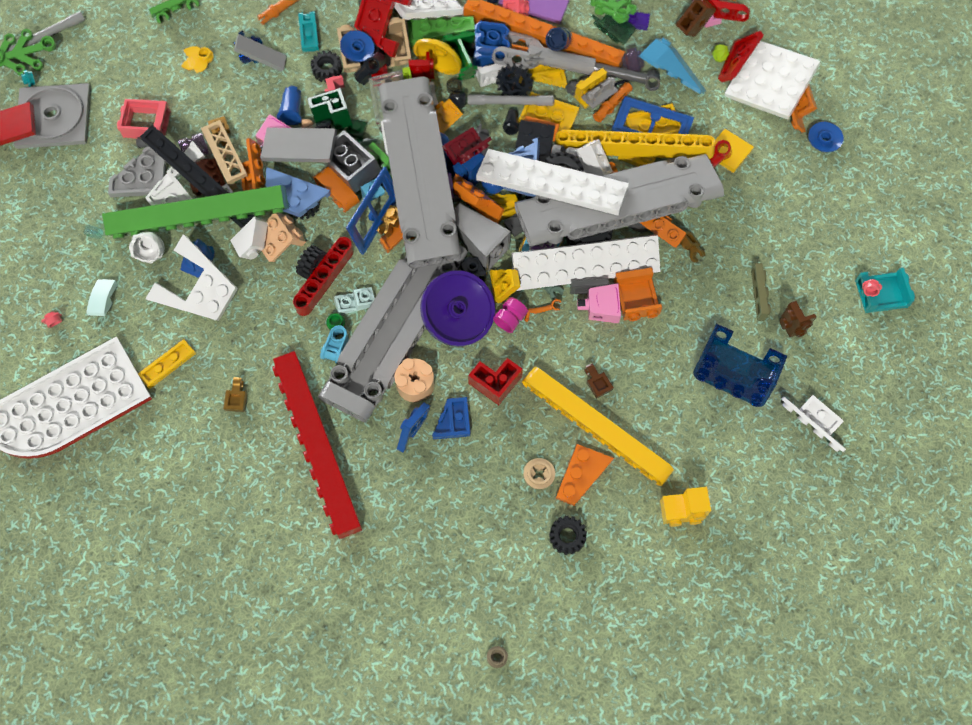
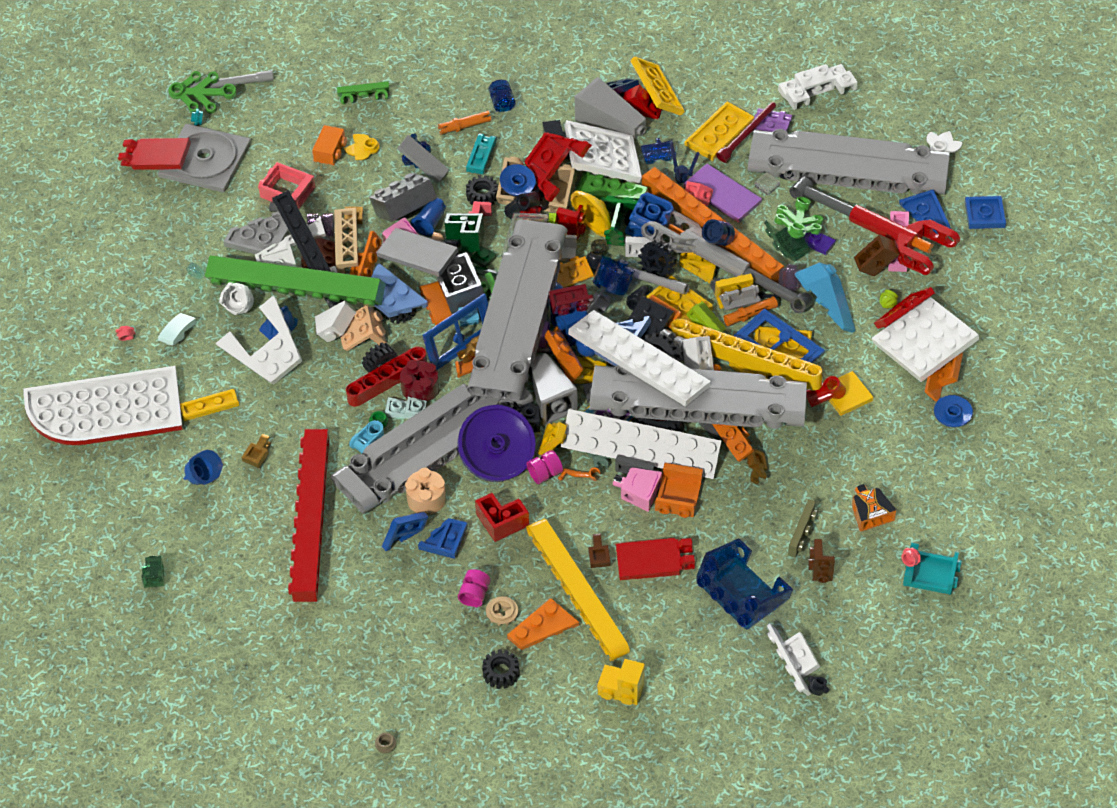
camera: 25 degrees right, 15 degrees down
(166, 66) = (329, 145): none -> orange brick
(189, 563) = (153, 572): none -> clear green brick
(191, 434) = (203, 468): none -> blue piece
(259, 95) = (402, 197): none -> flat silver brick
(357, 270) = (419, 380): none -> dark red brick
(484, 109) = (613, 275): none -> clear blue brick
(505, 465) = (474, 588): none -> dark pink wheel
(578, 121) = (704, 316): none -> lime panel
(646, 368) = (654, 558): none -> red tile
(806, 250) = (871, 508): none -> torso
(849, 439) = (817, 685): none -> black plate

